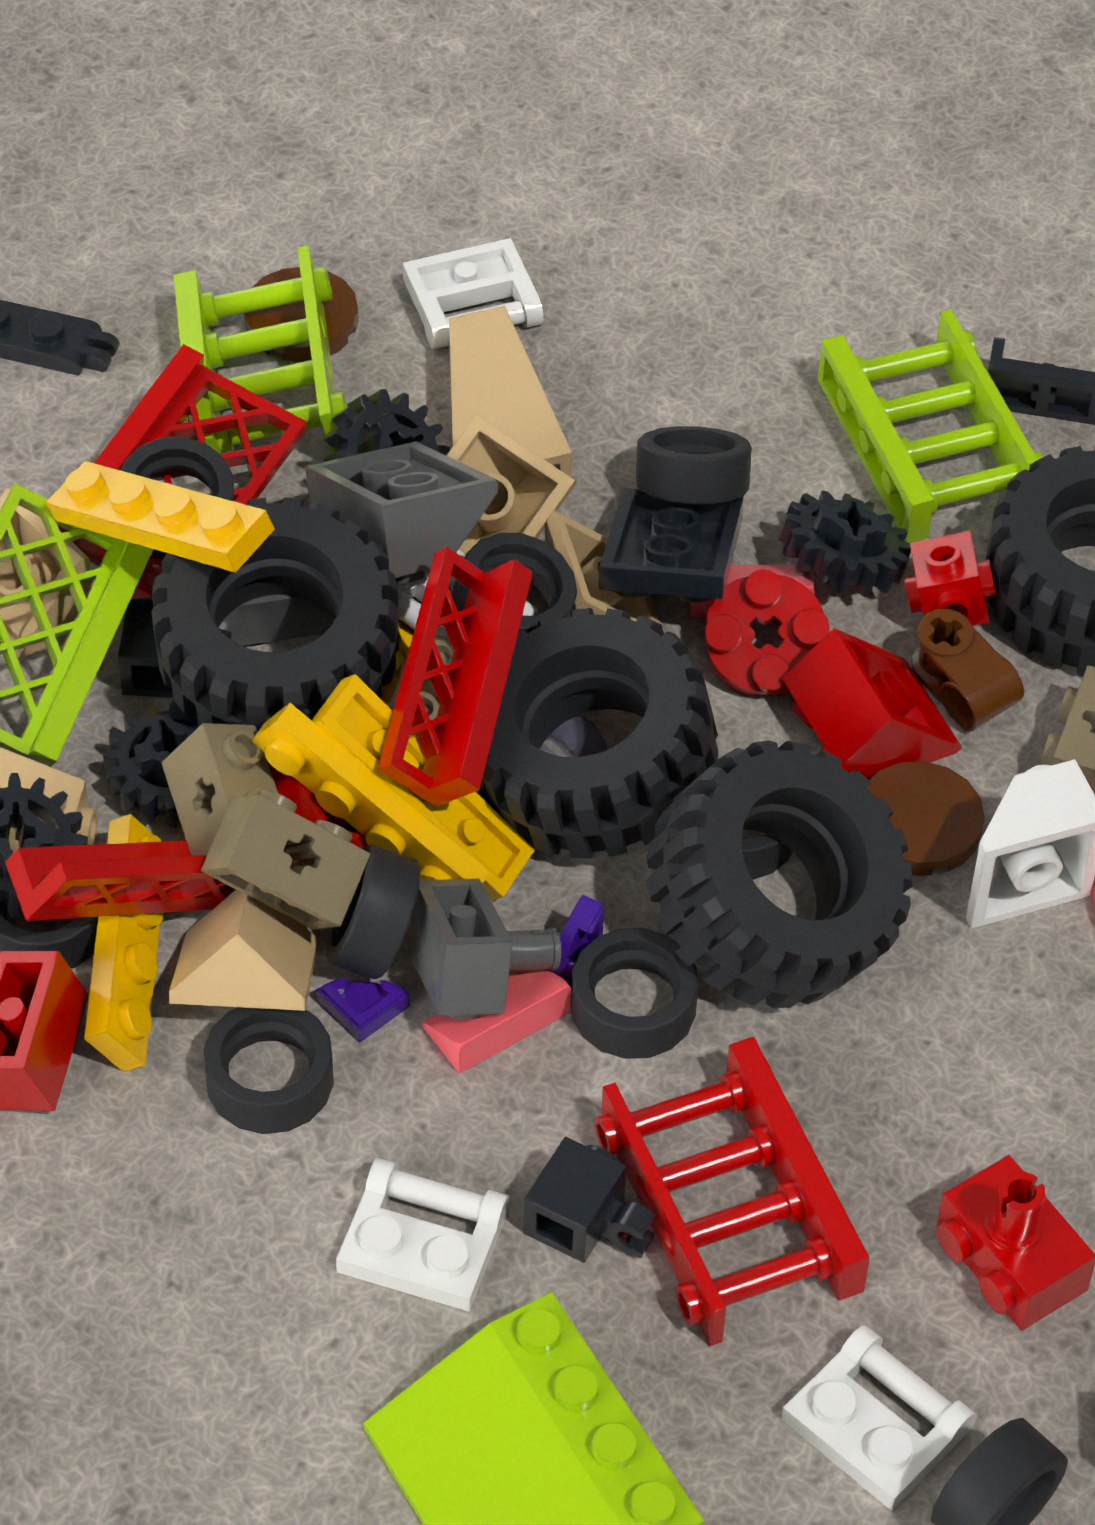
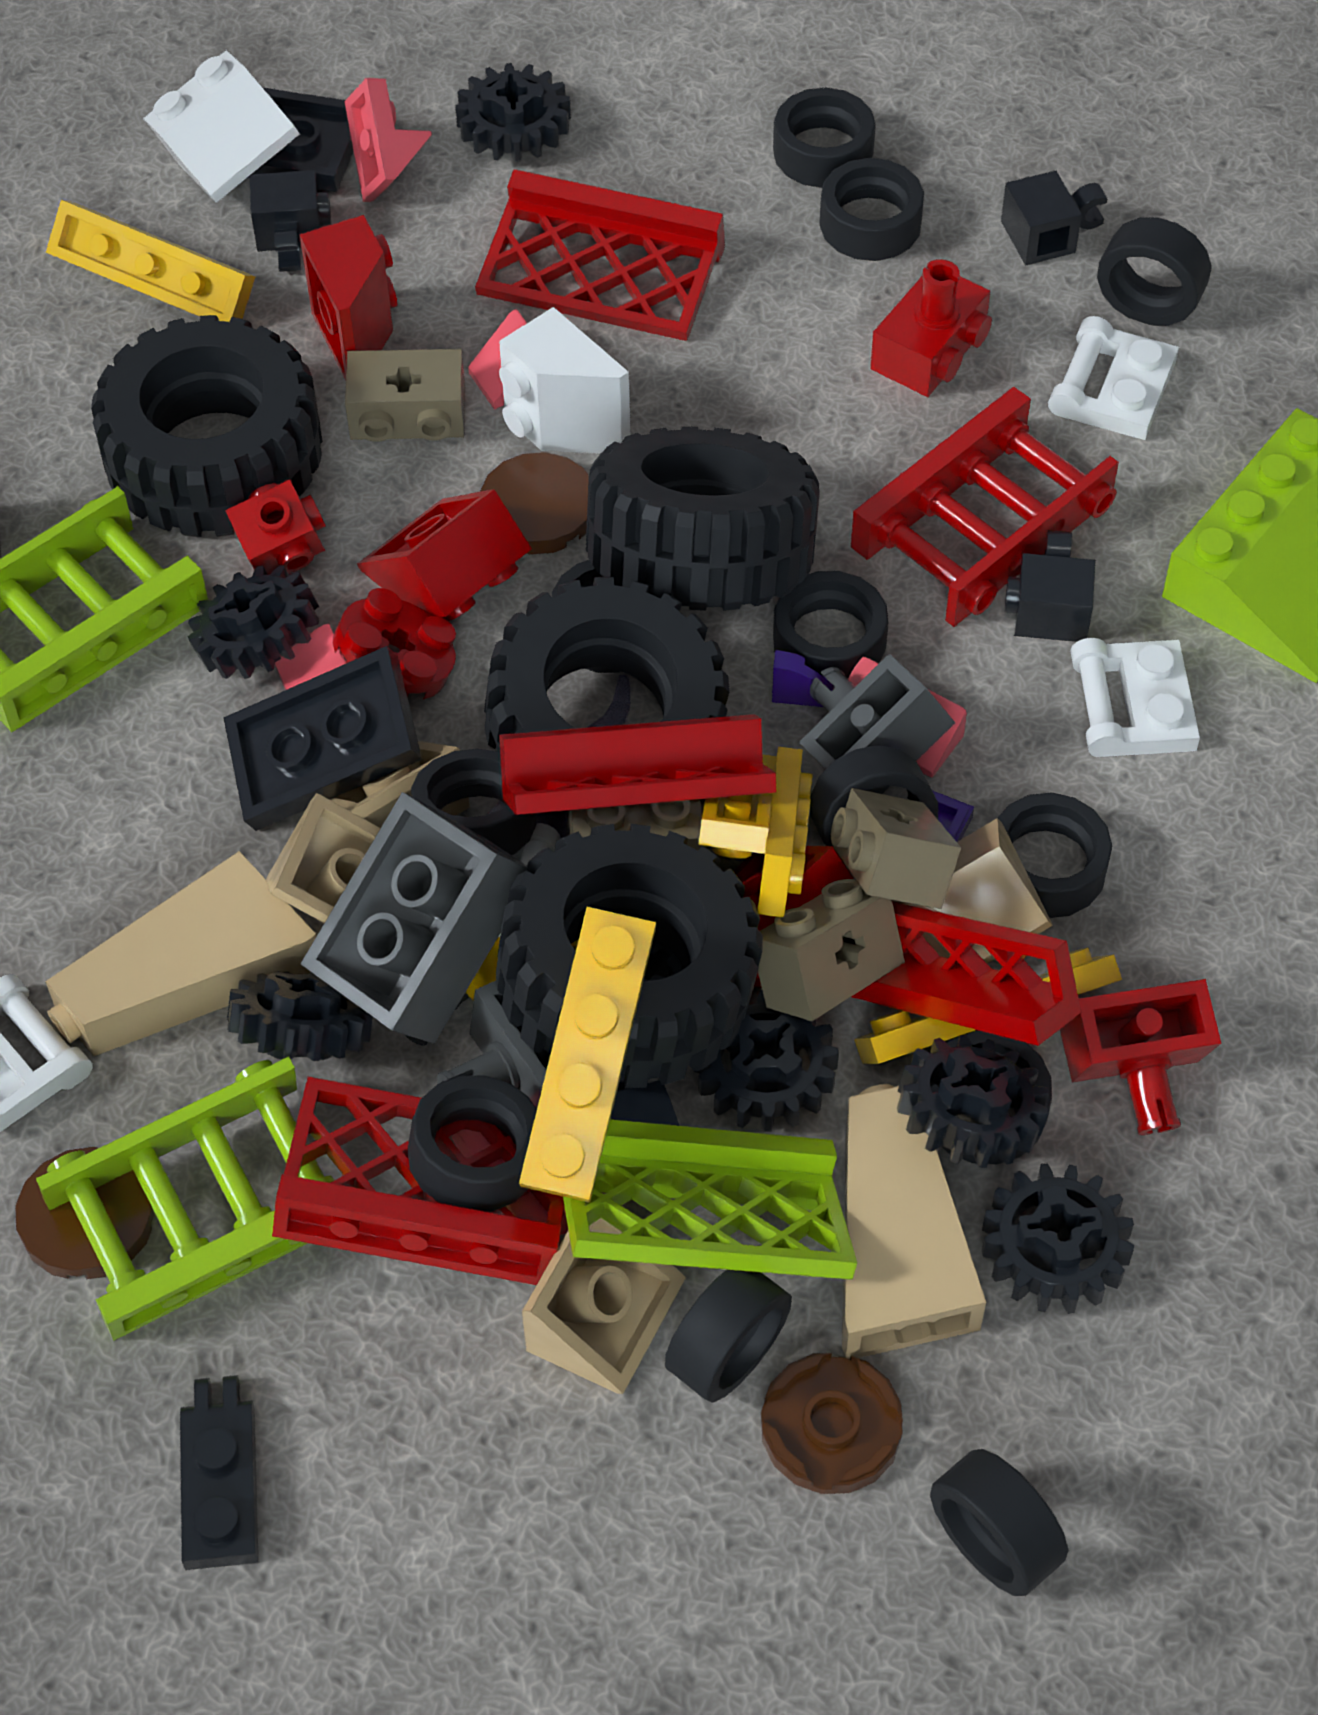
camera: 110 degrees left, 5 degrees up
(693, 465) = (179, 738): black tyre -> none
(964, 669) = (370, 505): reddish brown piece -> none

